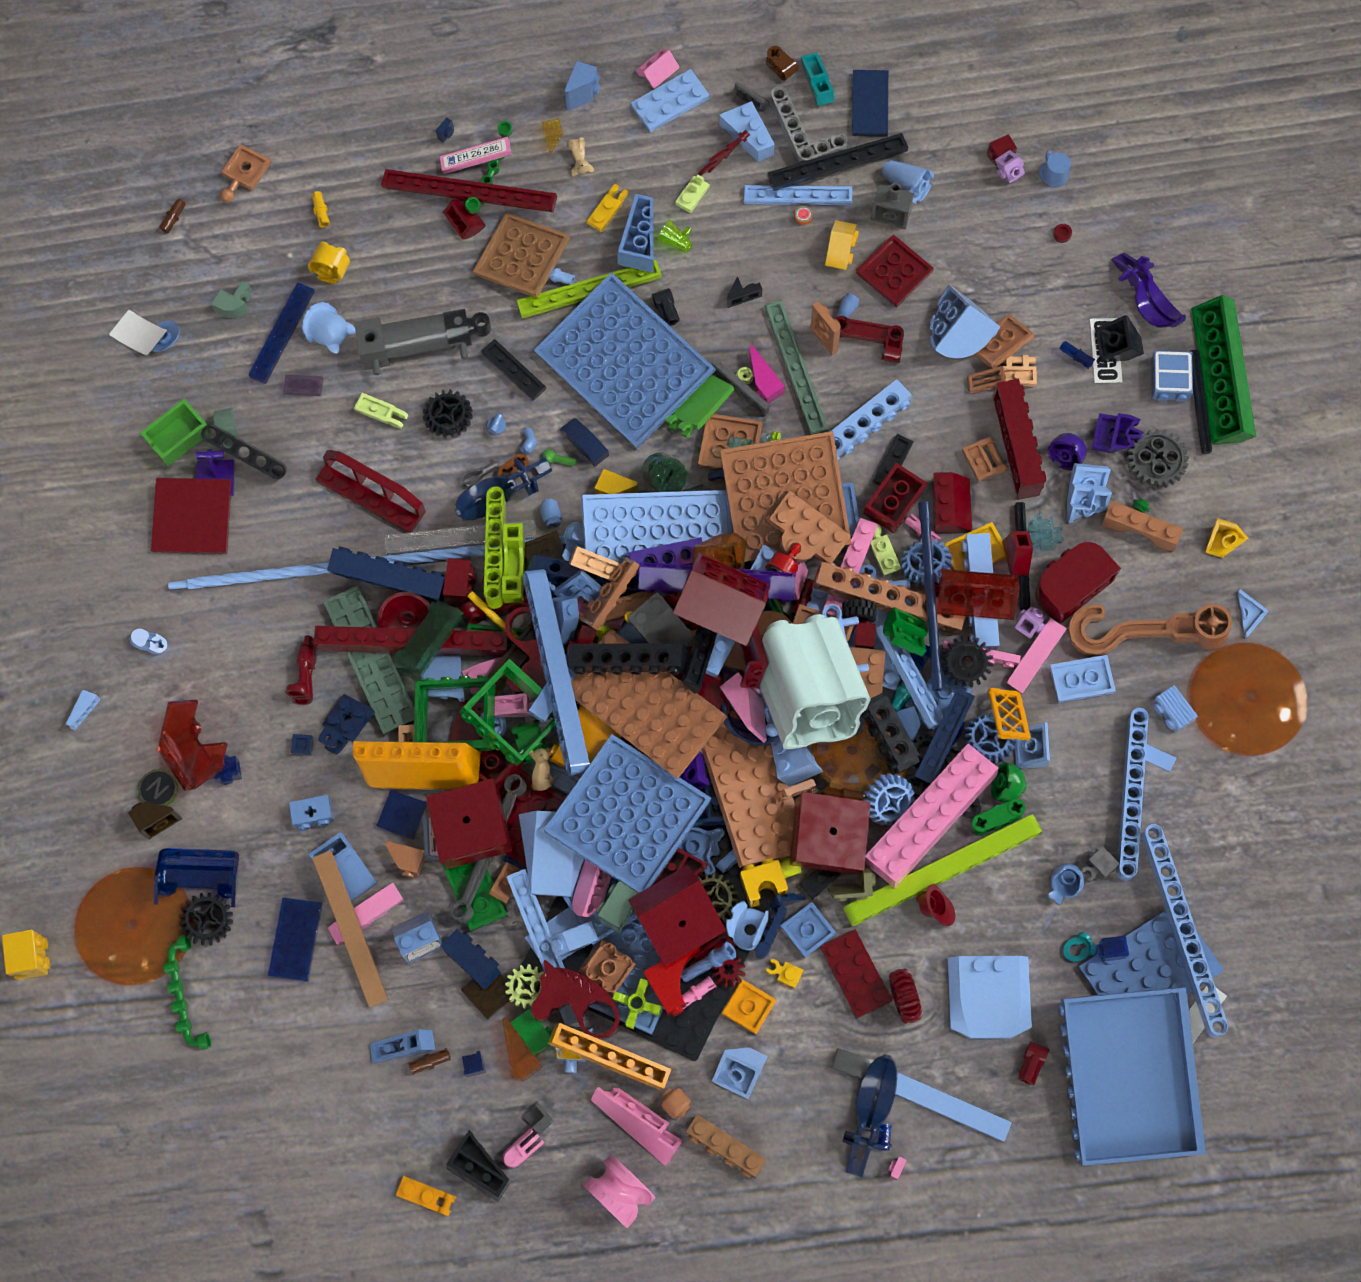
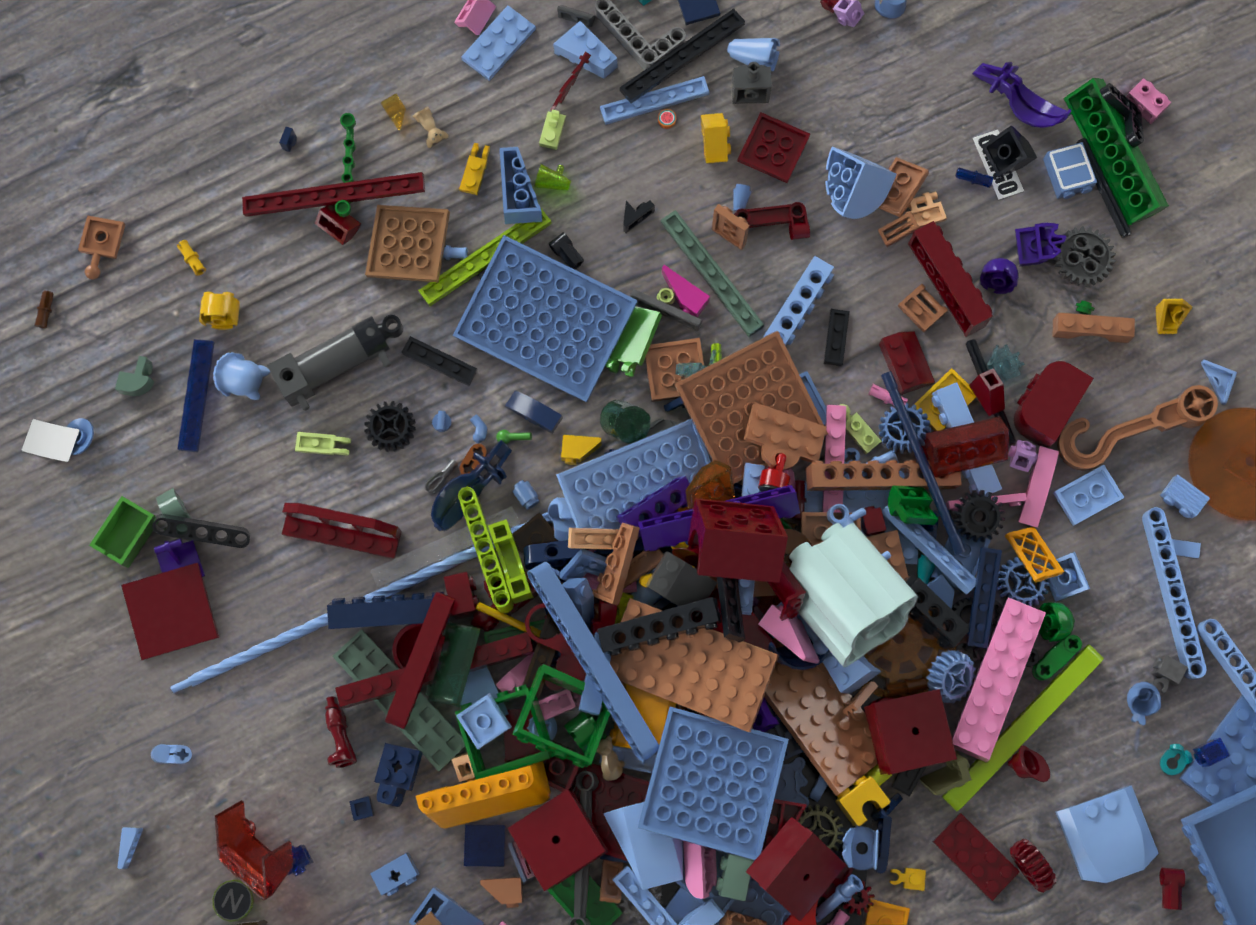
camera: 20 degrees left, 5 degrees up
(303, 385) = (236, 442): clear purple plate -> none
(399, 623) = (420, 660): none -> dark red beam
(438, 696) = (483, 721): none -> light blue tile
(475, 155) = (327, 156): tile -> none
(582, 85) = (408, 54): medium blue slope -> none
(808, 930) = (916, 829): medium blue plate -> none
(862, 609) = (860, 499): black tyre -> none
(895, 498) = (853, 374): dark red brick -> none
(1062, 233) = (918, 61): dark red tile -> none
(1087, 491) = (1030, 309): light blue slope -> none
(1250, 339) = (1129, 110): none -> black beam
(1271, 333) = (1148, 100): none -> bright pink brick

